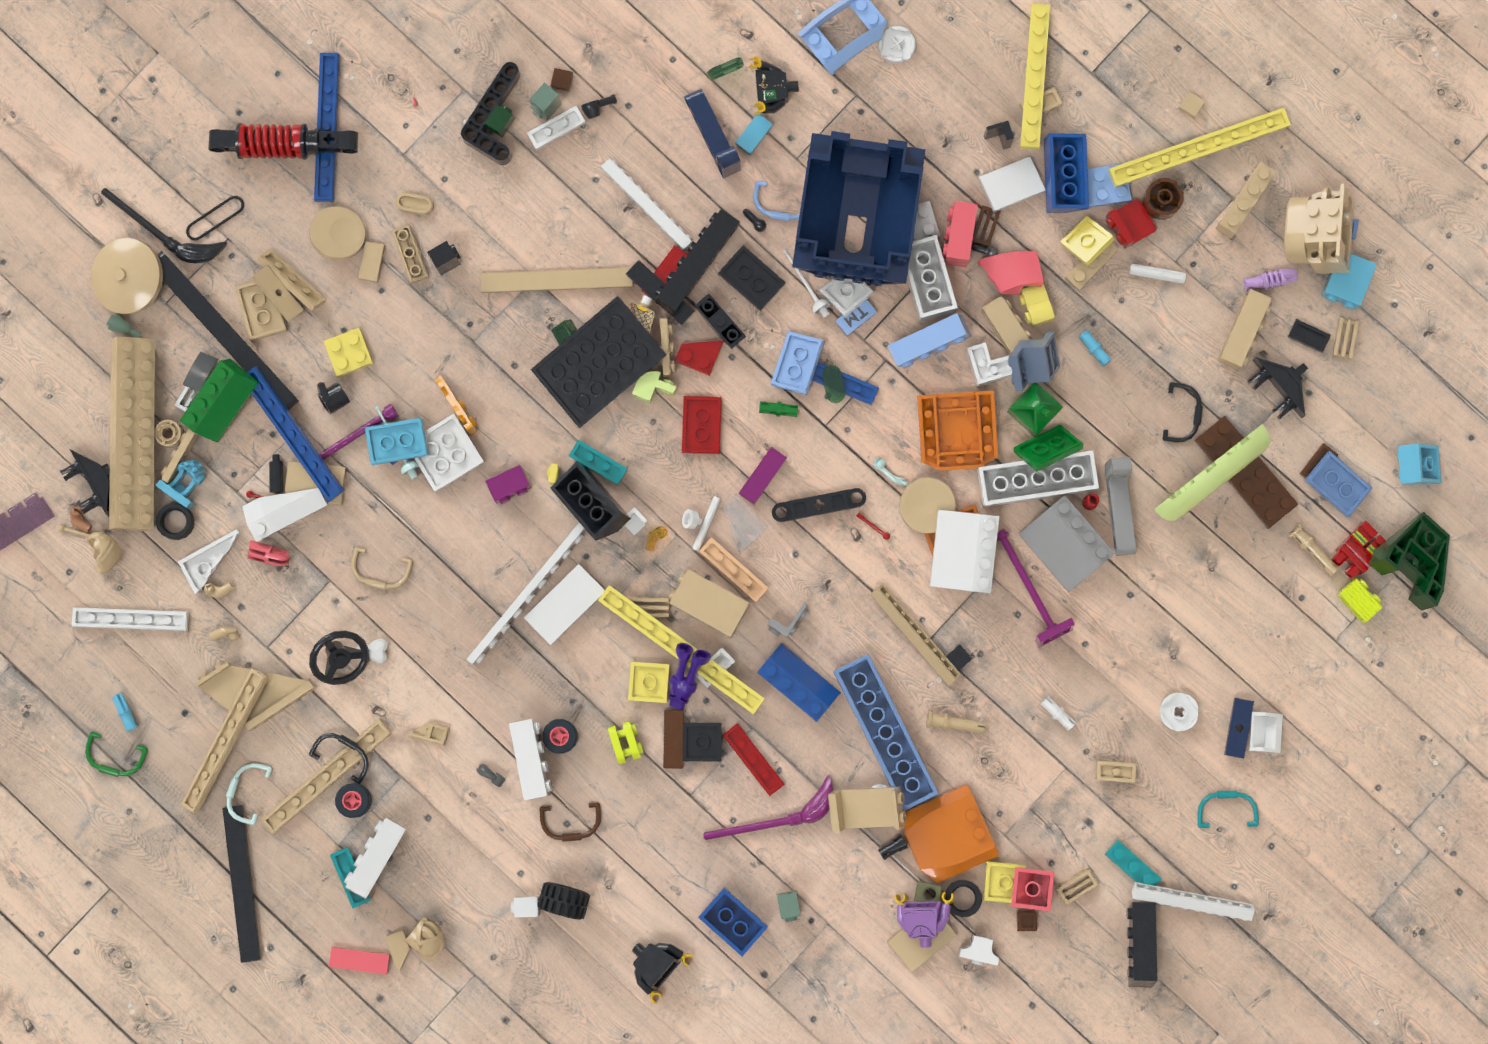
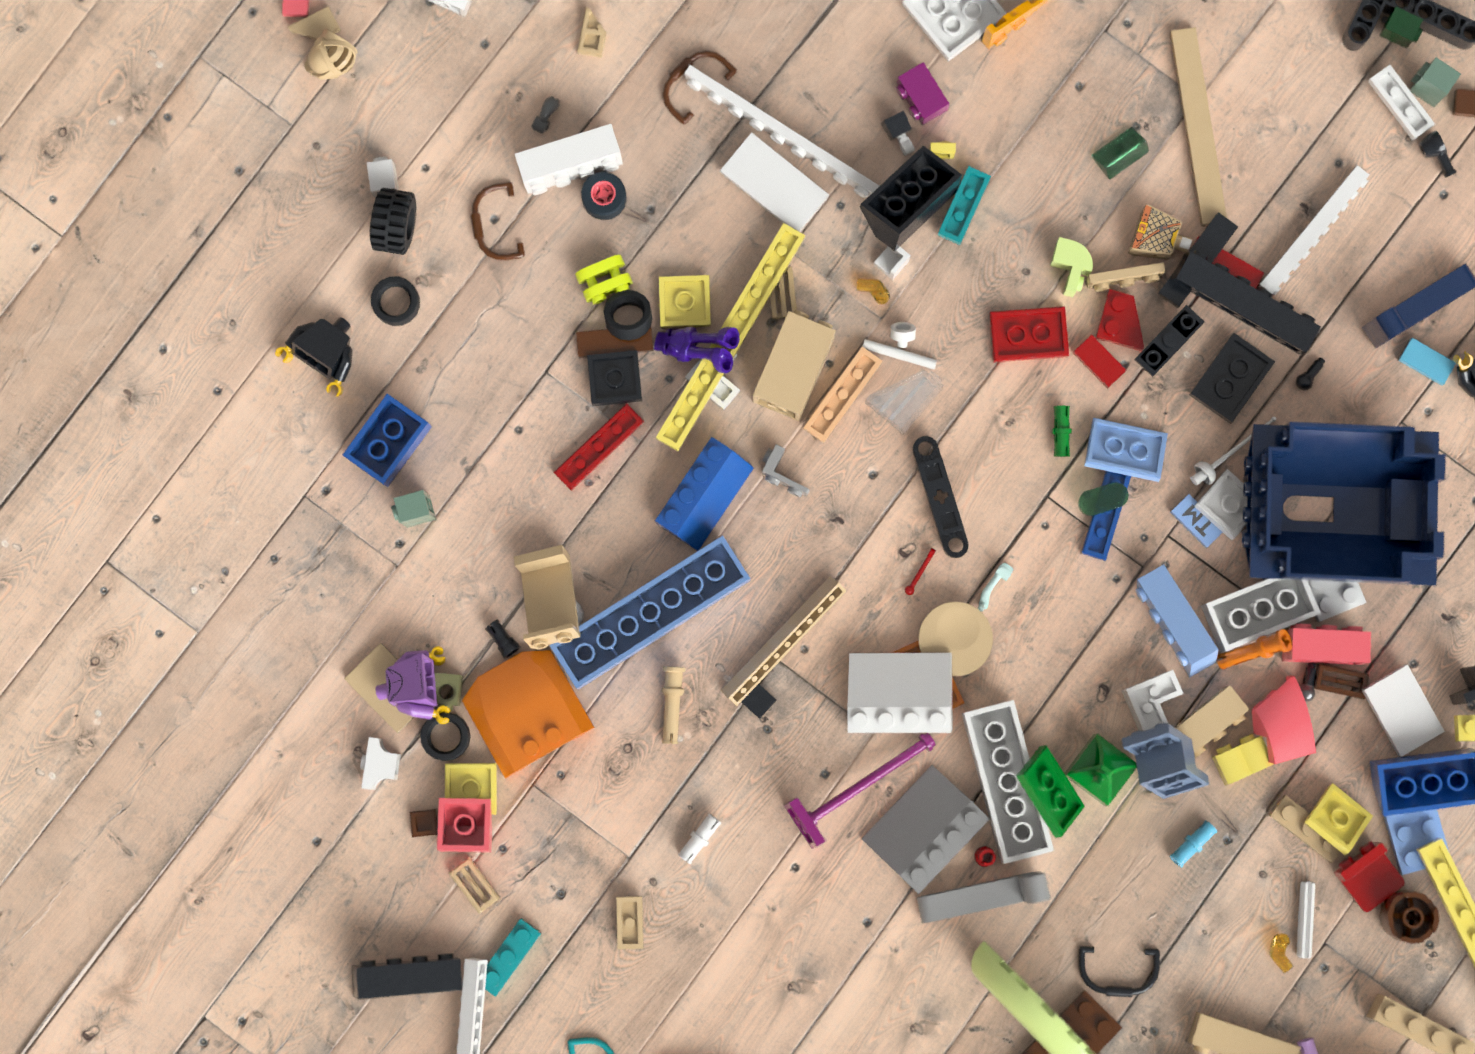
camera: 85 degrees right, 0 degrees up
(467, 668) = (681, 69): none -> reddish brown piece
(532, 506) = (897, 127): none -> black piece
(598, 362) = (1096, 189): black plate -> none
(609, 906) = (409, 314): none -> black tyre
(641, 726) = (625, 298): none -> black tyre
(728, 374) = (1099, 361): none -> red tile
(762, 475) = (971, 420): magenta tile -> none
(773, 214) = (1320, 412): light blue piece -> none
(811, 813) = (537, 528): magenta piece -> none
(957, 279) = (1263, 647): none -> orange pin
(957, 429) = (1061, 669): orange wedge -> none
(1174, 722) = (717, 985): white plate -> none
(1178, 296) = (1278, 950): none -> clear yellow arm

